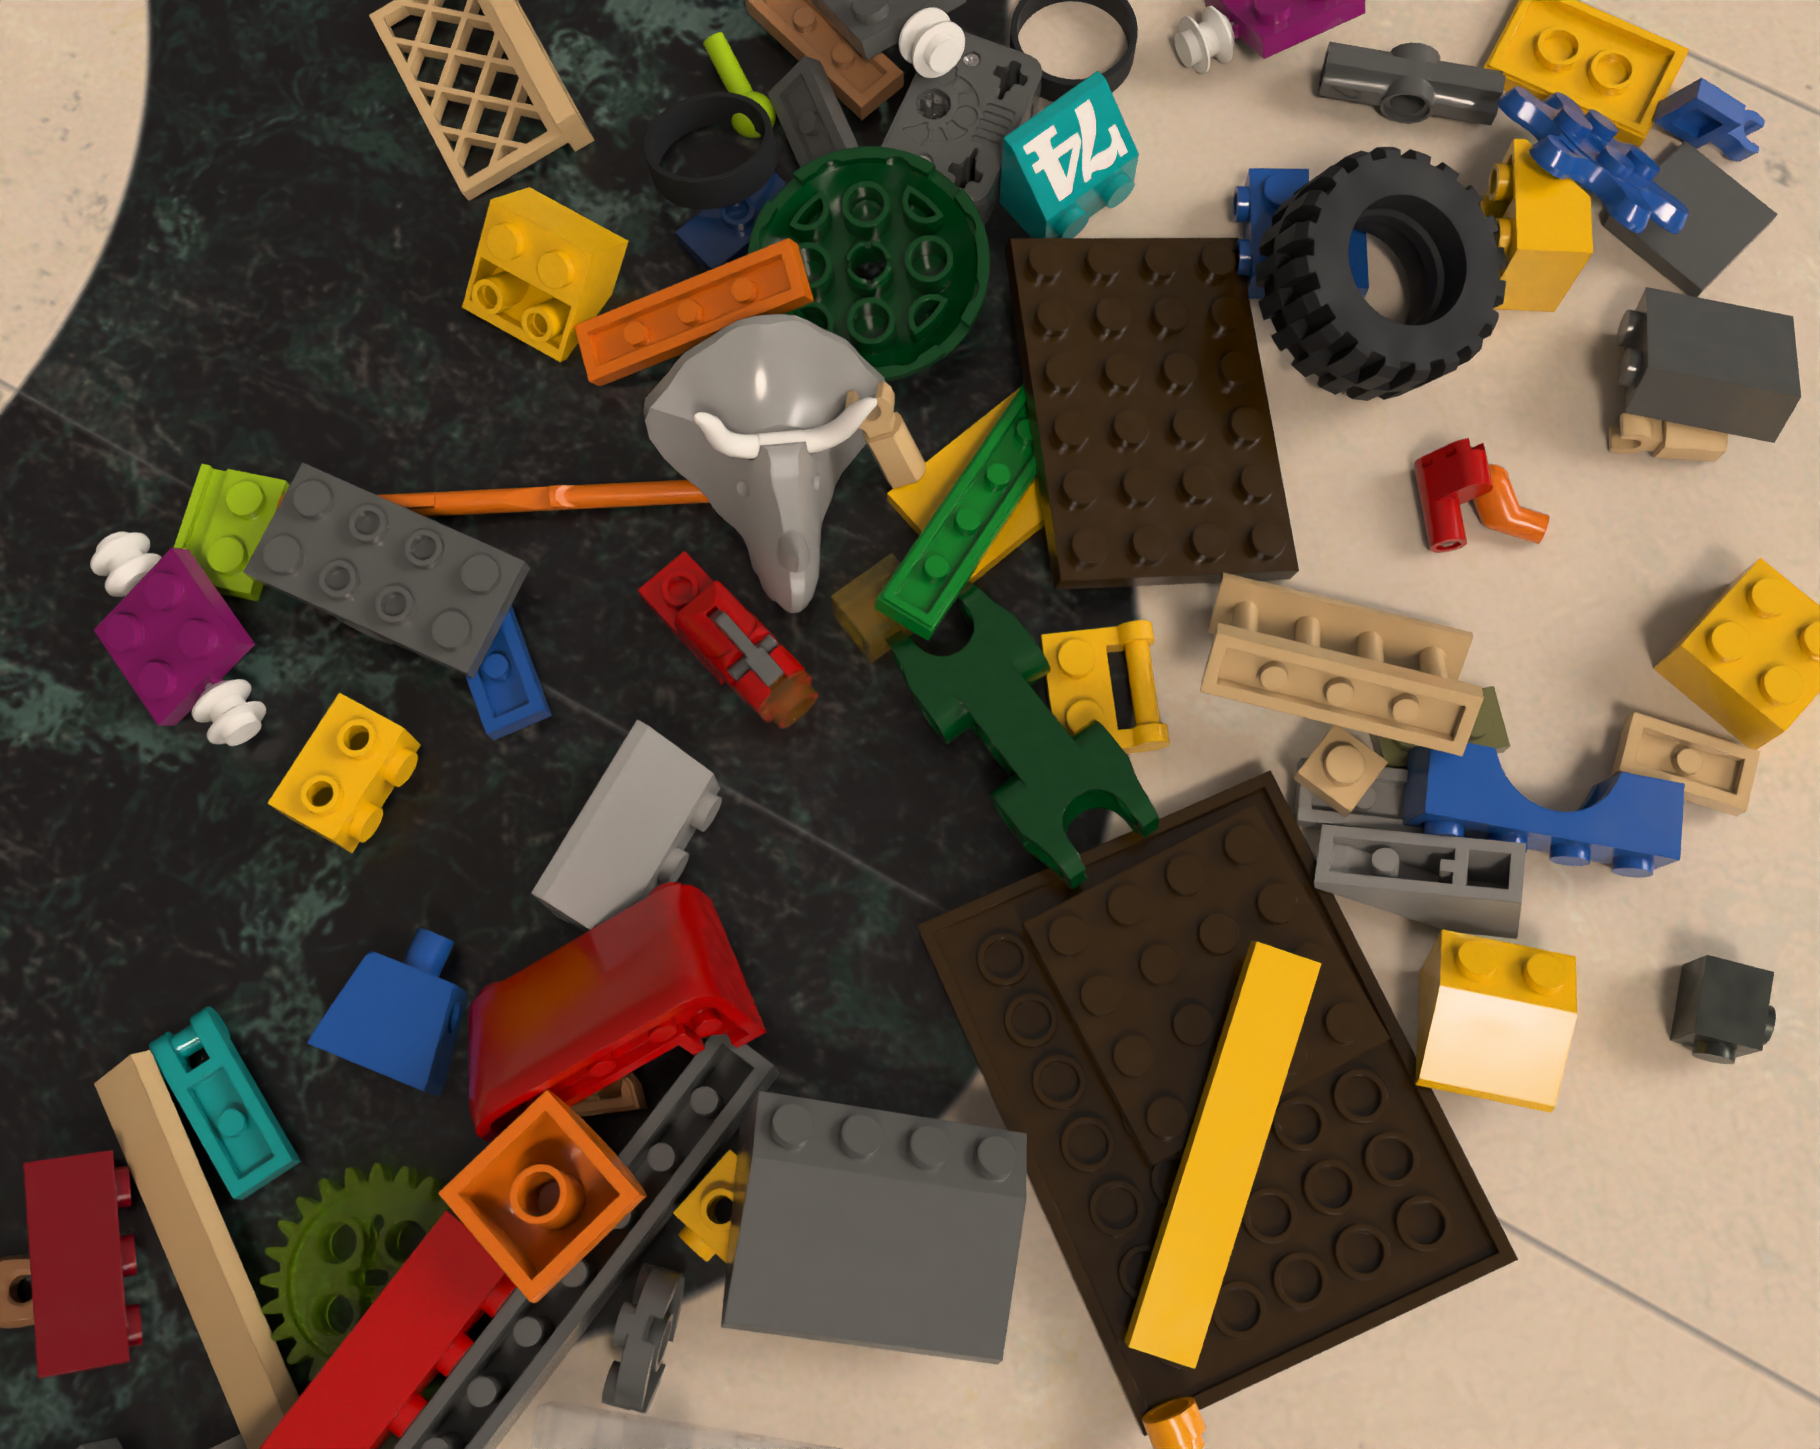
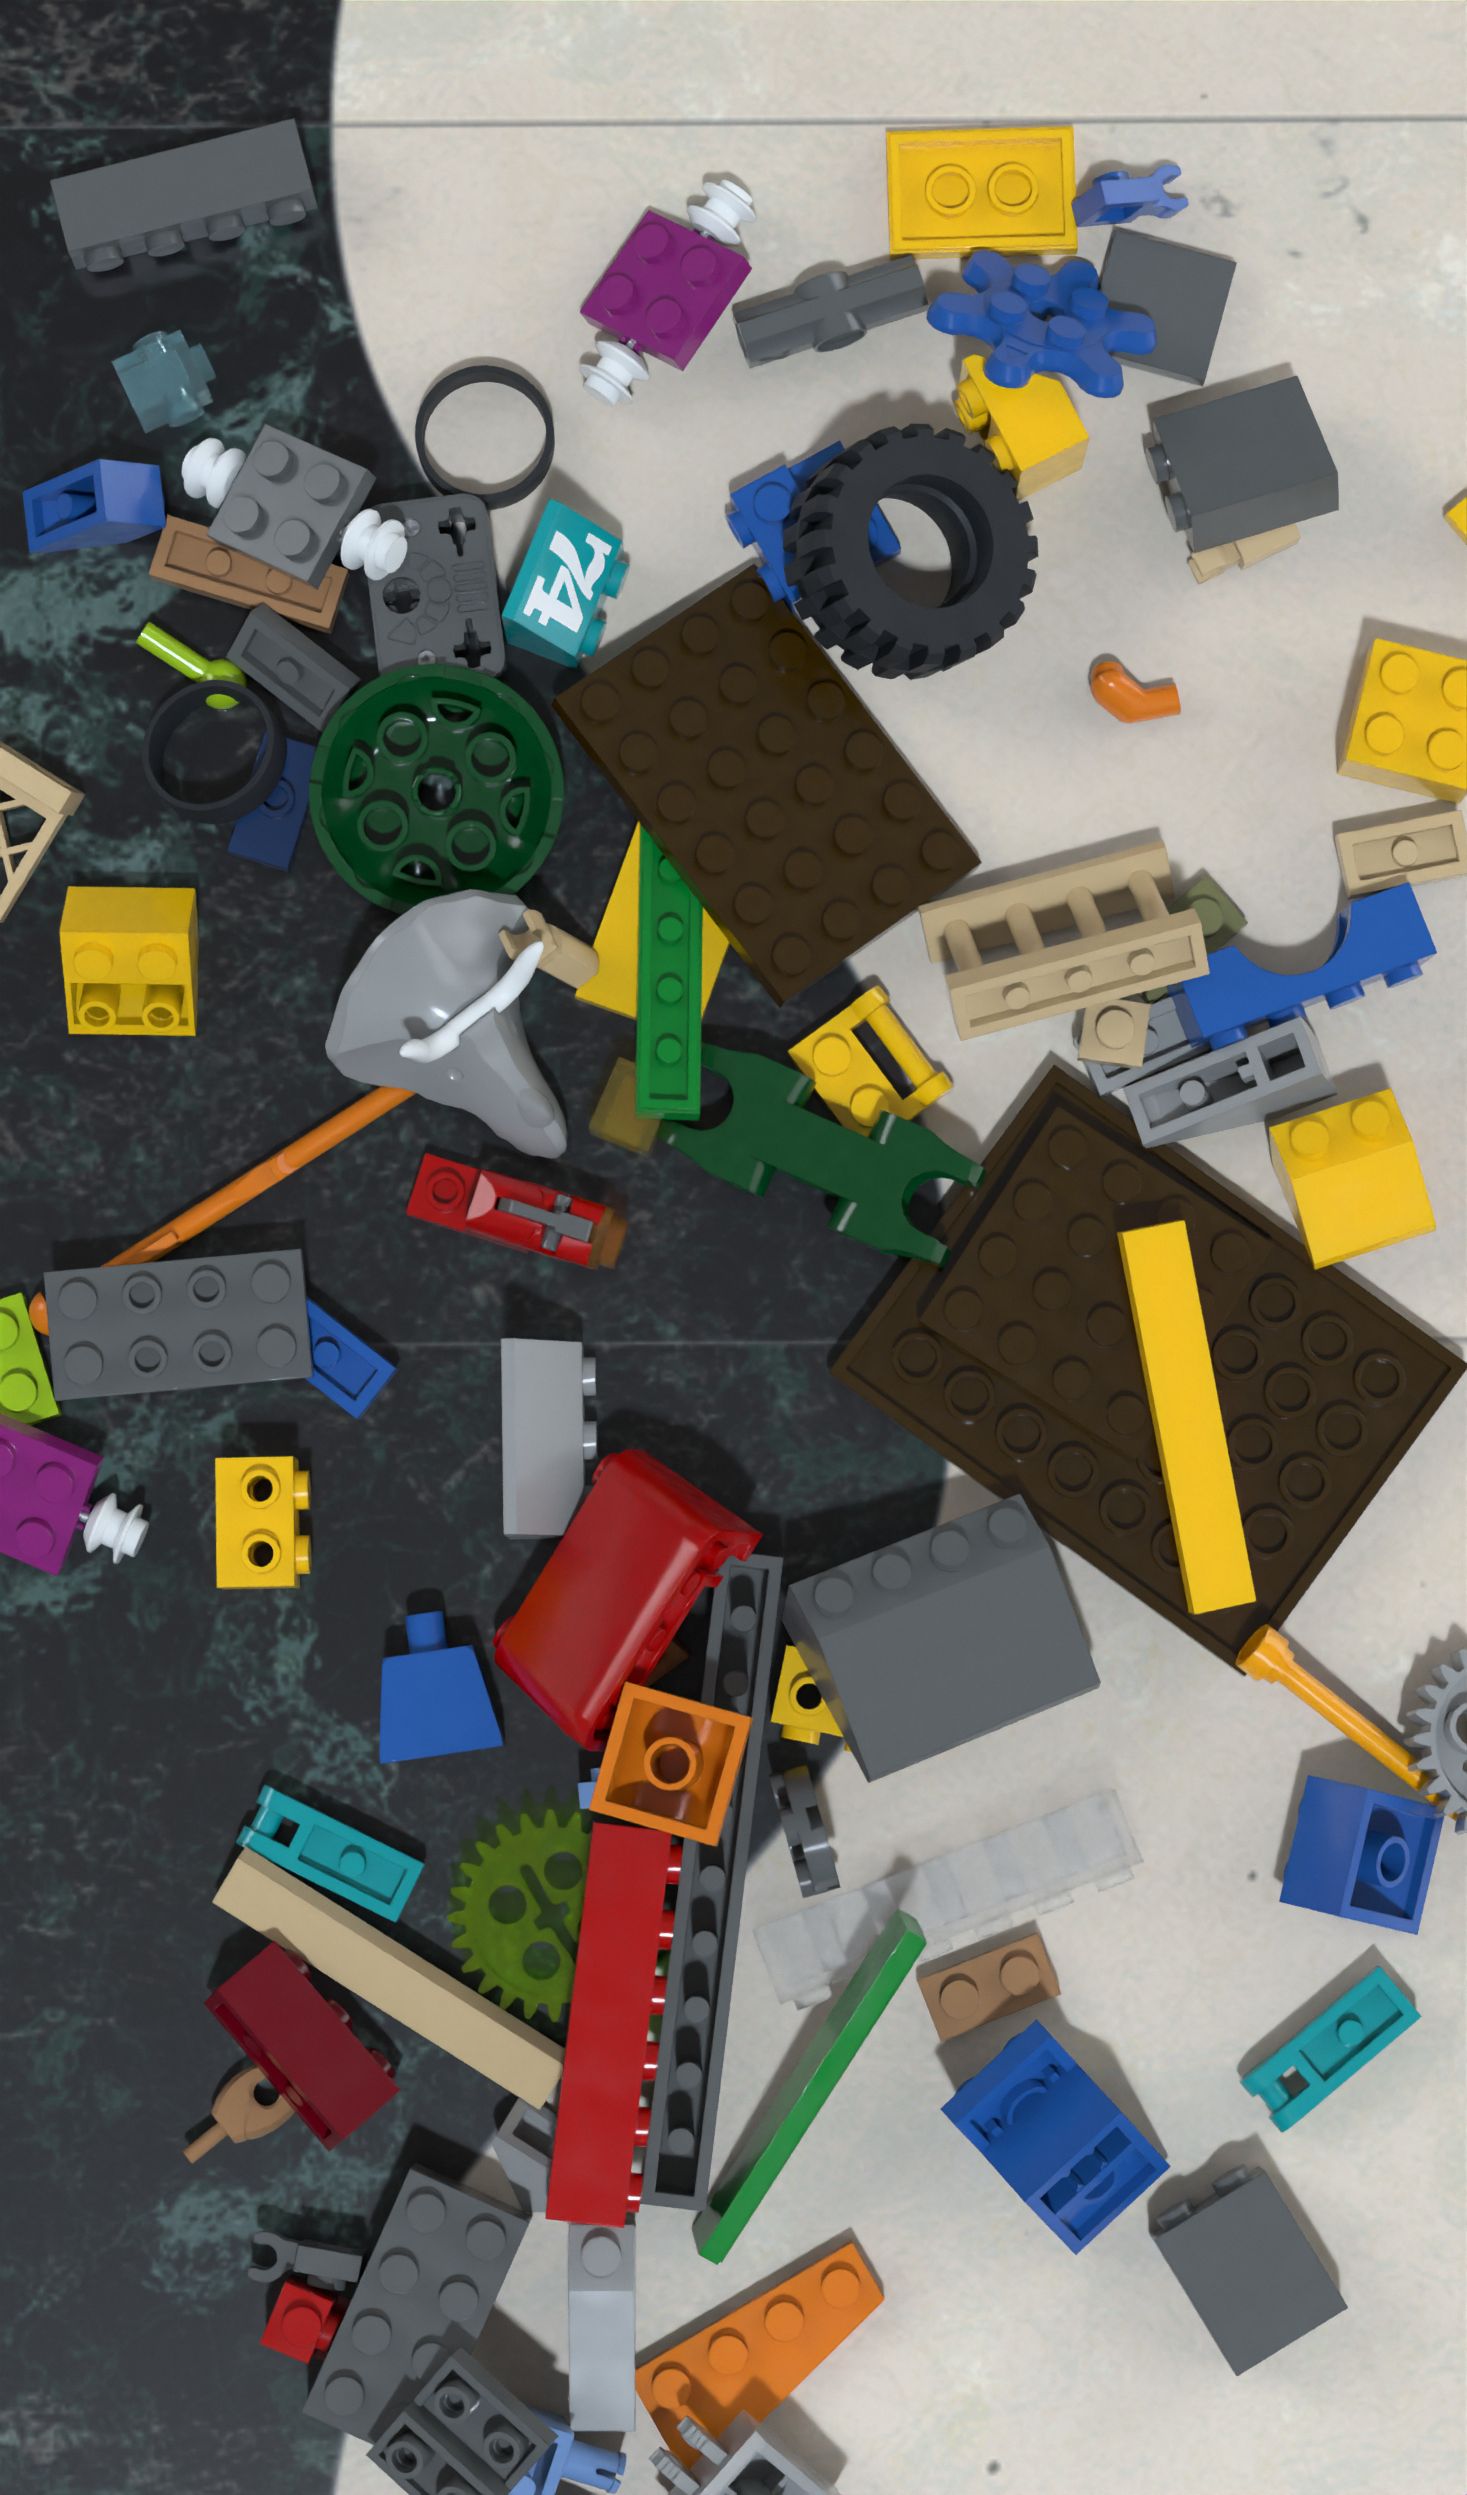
camera: 30 degrees left, 10 degrees up
(692, 311) = (304, 930): orange plate -> none
(1444, 483) = (1067, 706): red piece -> none

